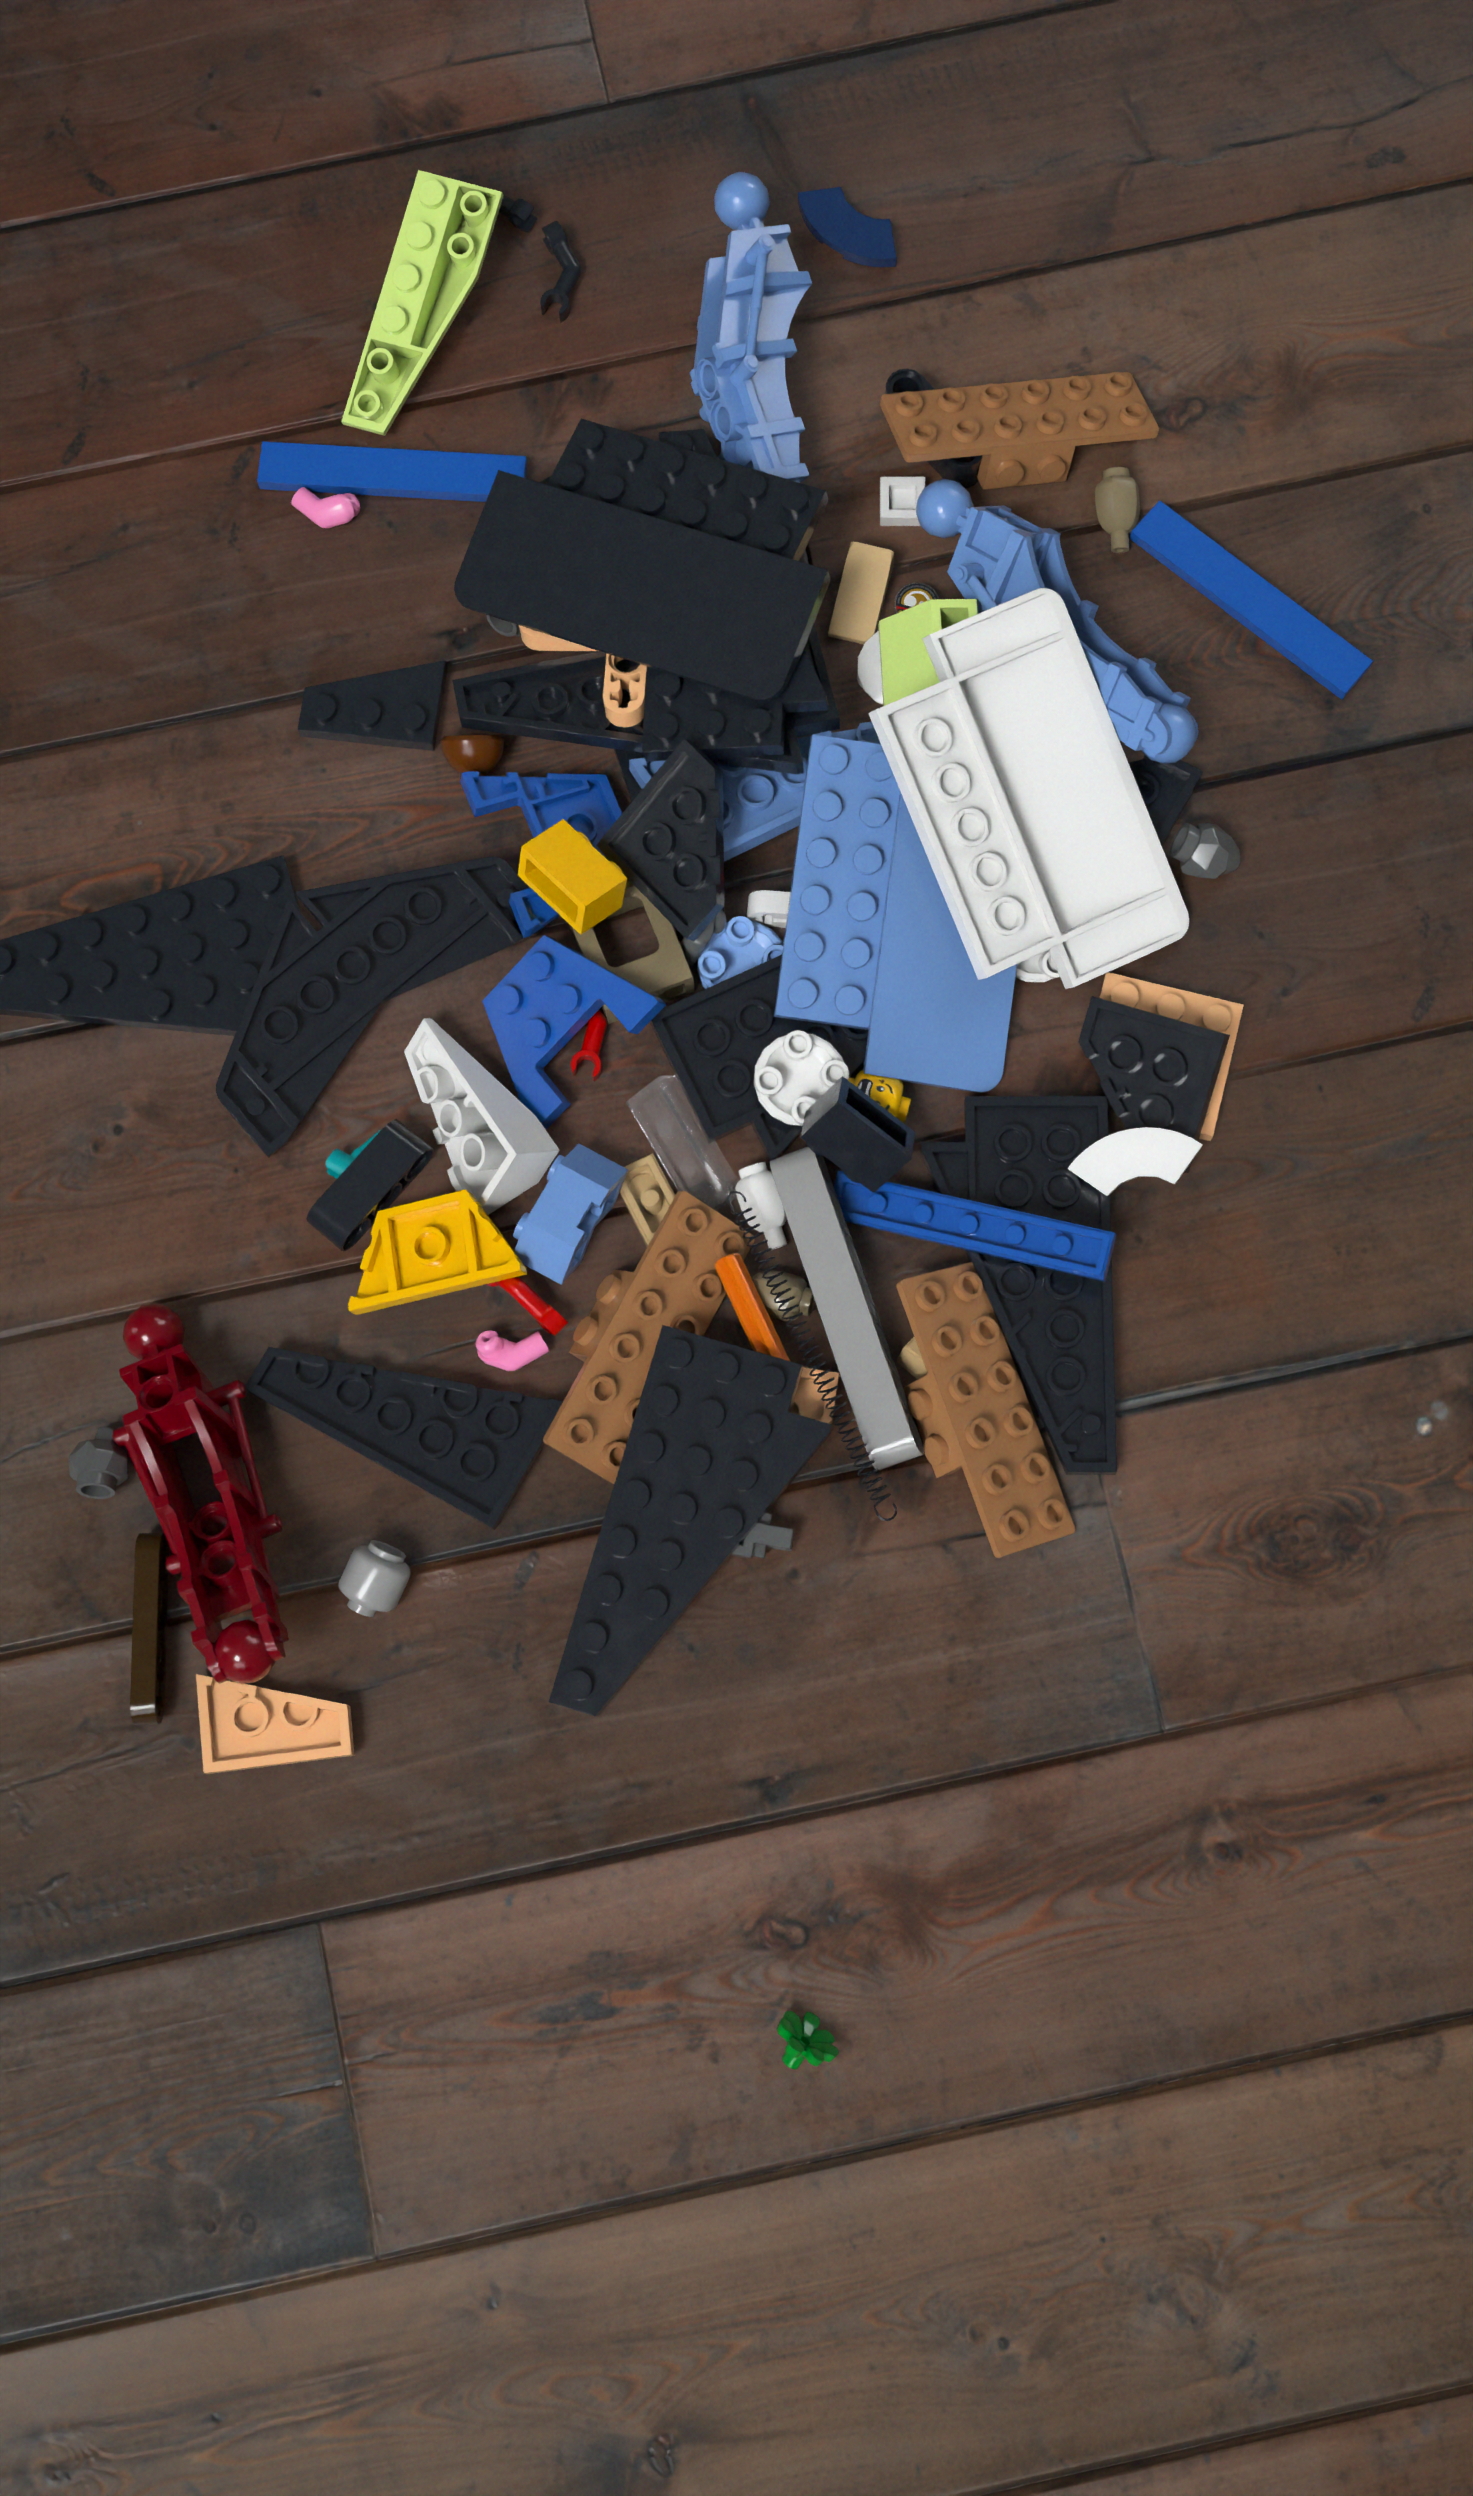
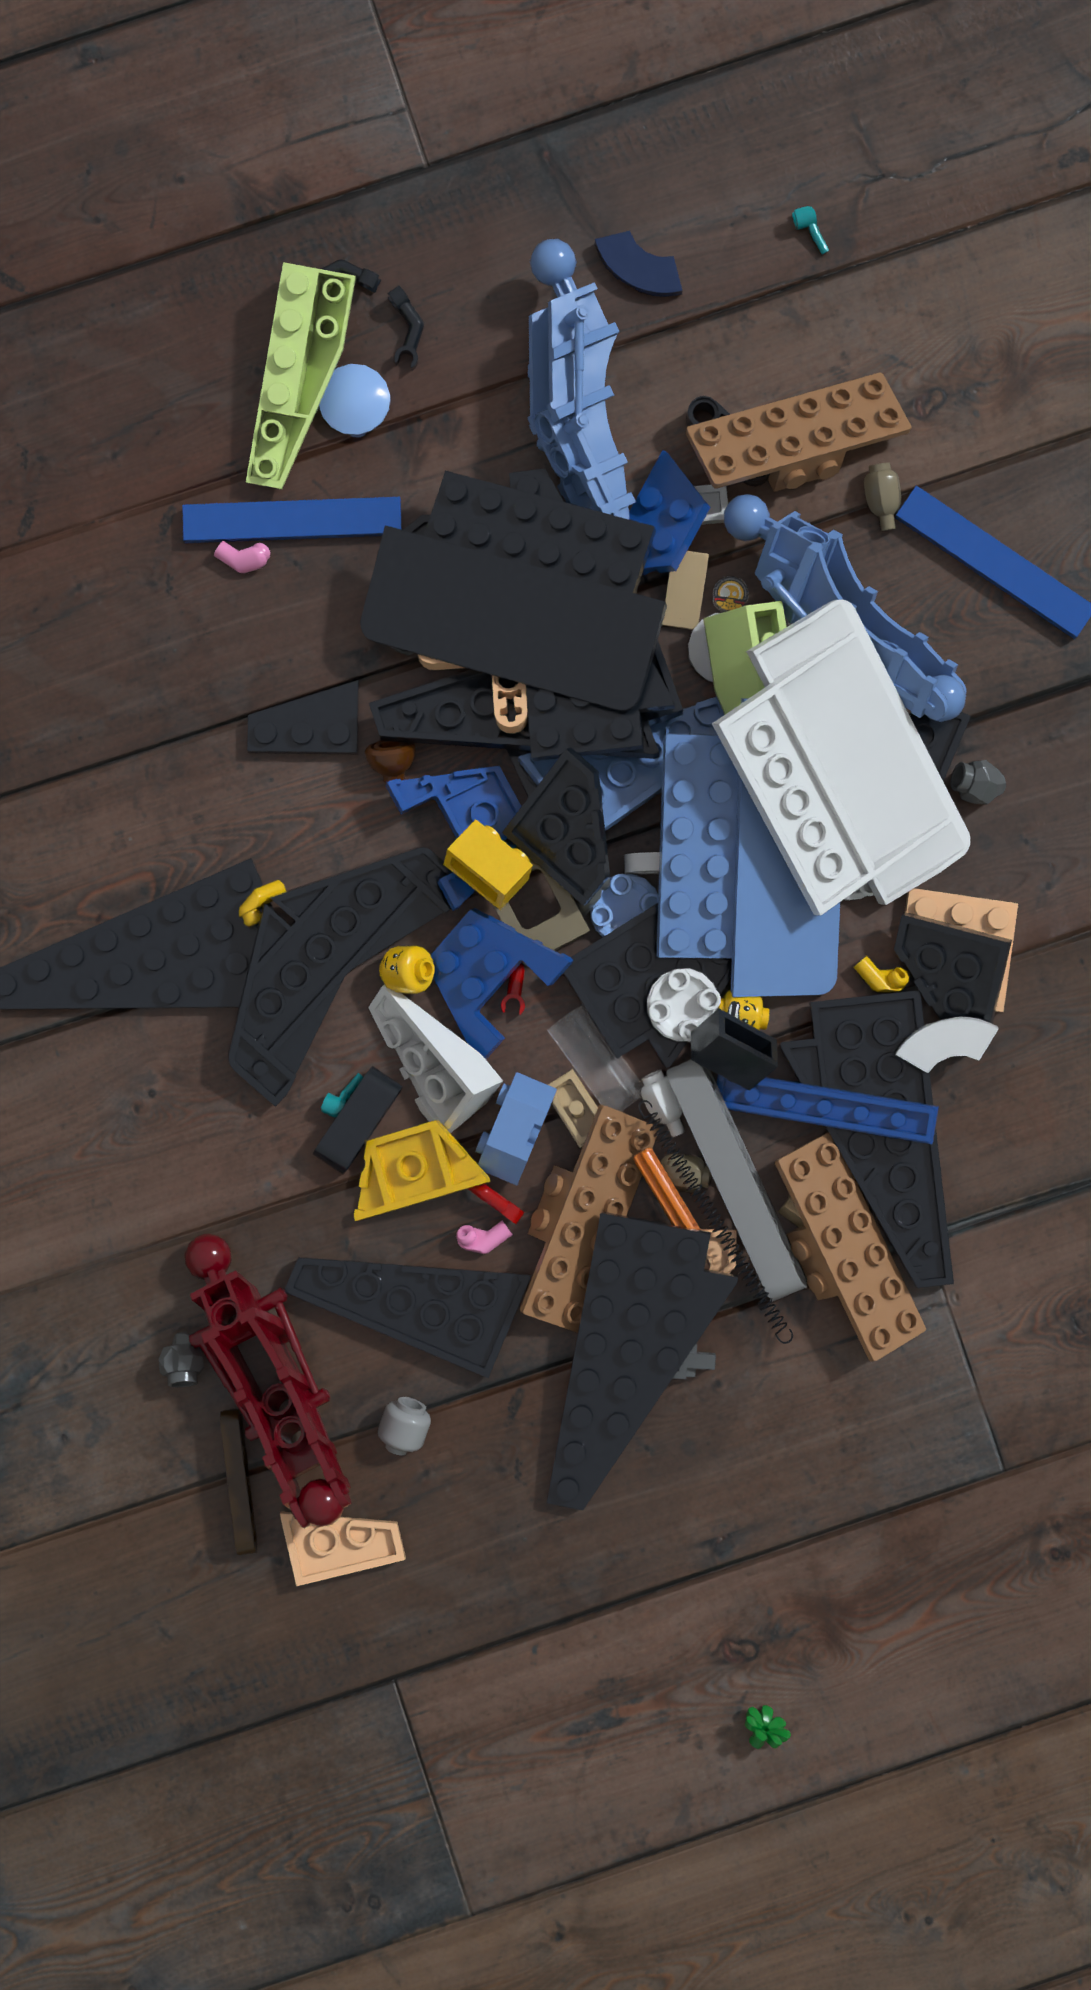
camera: 15 degrees left, 10 degrees up
(272, 906) = (250, 908): none -> yellow arm
(457, 1003) = (407, 969): none -> yellow head
(486, 345) = (355, 400): none -> light blue dish
(857, 504) = (674, 509): none -> blue wing
(1054, 192) = (806, 217): none -> teal hand
(1059, 1082) = (882, 980): none -> yellow arm

